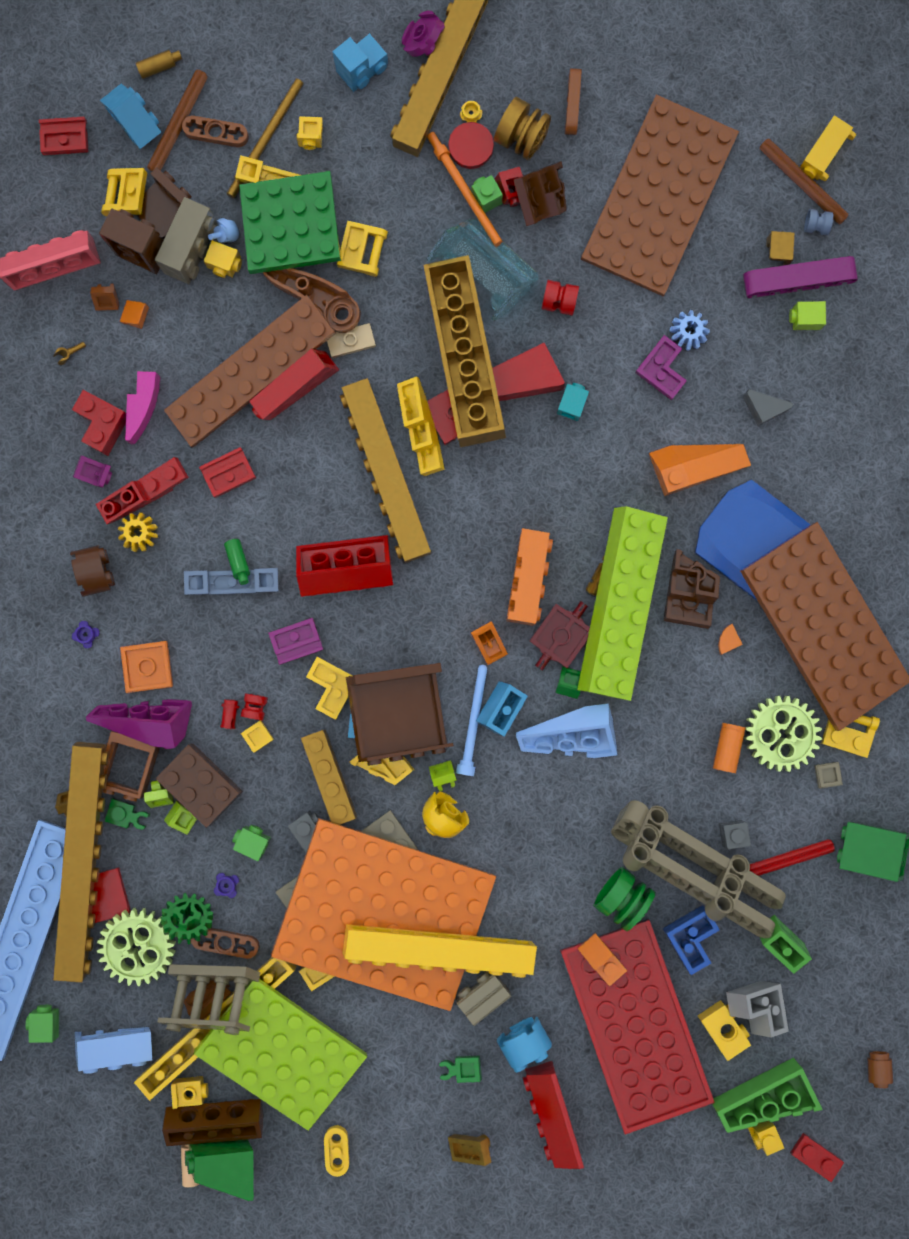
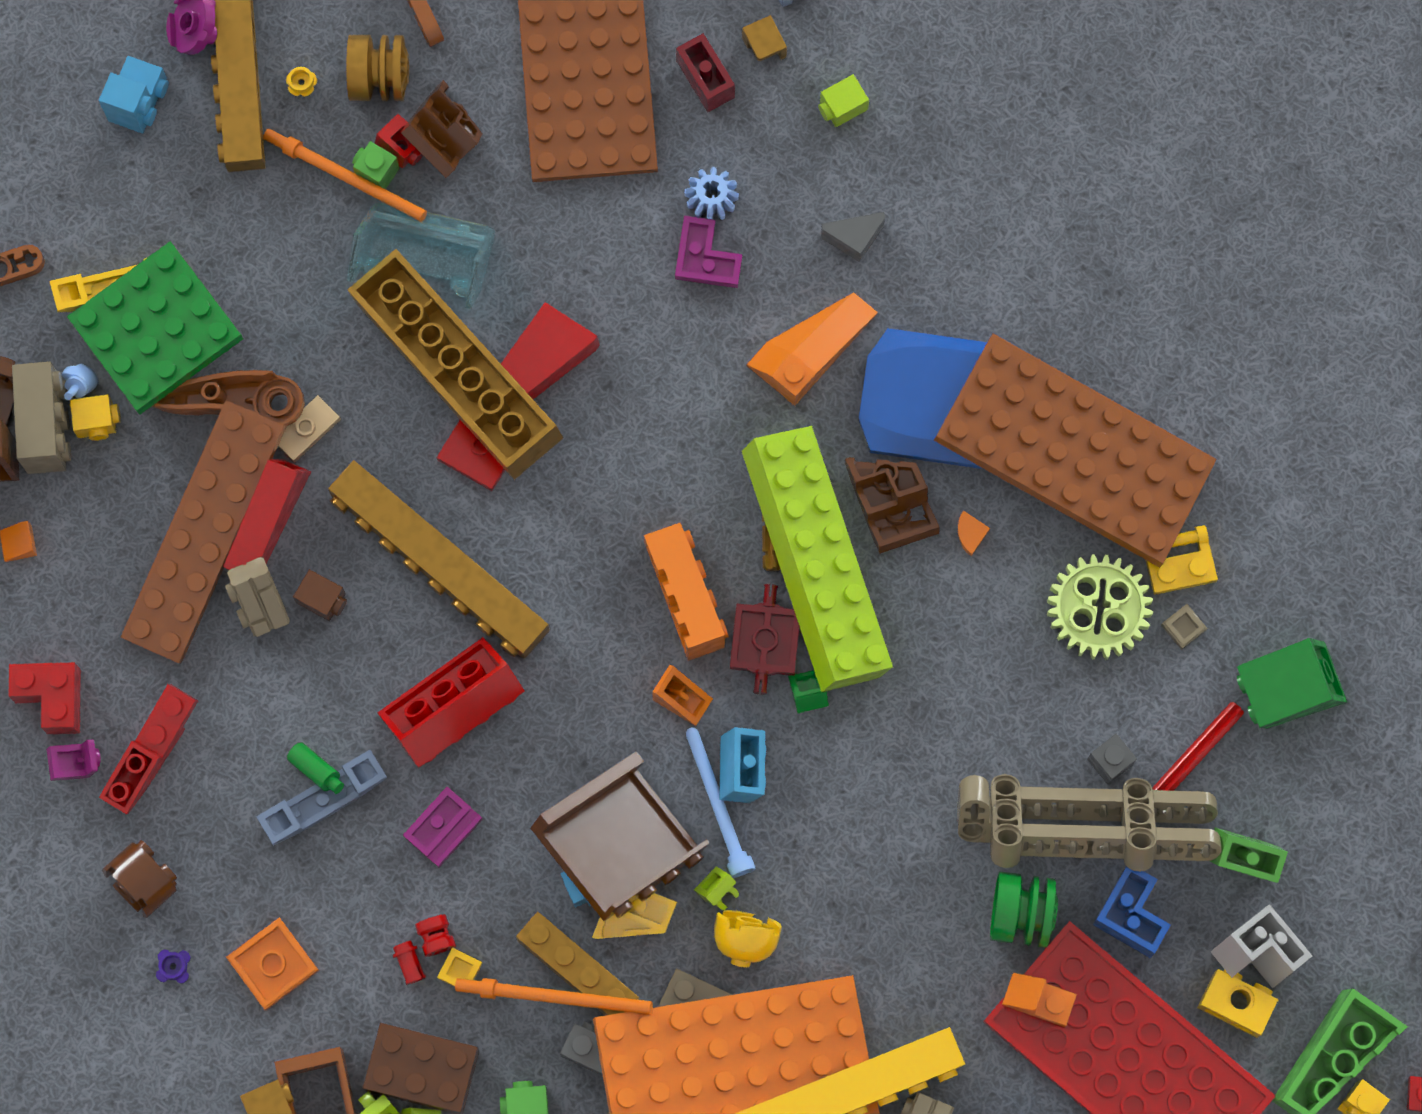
camera: 30 degrees left, 10 degrees down
(139, 522) = (176, 812): yellow gear -> none
(141, 405) = (89, 645): dark pink slope -> none
(154, 725) = (327, 1025): magenta wedge -> none
(227, 472) = (242, 669): red plate -> none
(259, 431) = (257, 596): none -> dark tan brick
(268, 761) = (491, 988): none -> orange bar
(269, 131) = (65, 237): pearl gold bar -> none
(300, 453) = (320, 596): none -> reddish brown brick
(310, 132) = (118, 209): yellow bracket -> none
(336, 687) = (523, 851): yellow plate -> none
(354, 247) = (248, 314): yellow plate -> none
(421, 426) = (451, 483): yellow slope -> none
(471, 145) = (323, 120): red tile -> none
(560, 297) = (534, 240): red wheel -> none
(573, 401) = (619, 353): teal brick -> none
(581, 730) = (852, 741): light blue wedge -> none
(729, 748) = (1045, 660): orange pin -> none
(730, 247) = (705, 72): none -> dark red brick
(800, 276) = (806, 61): magenta beam -> none

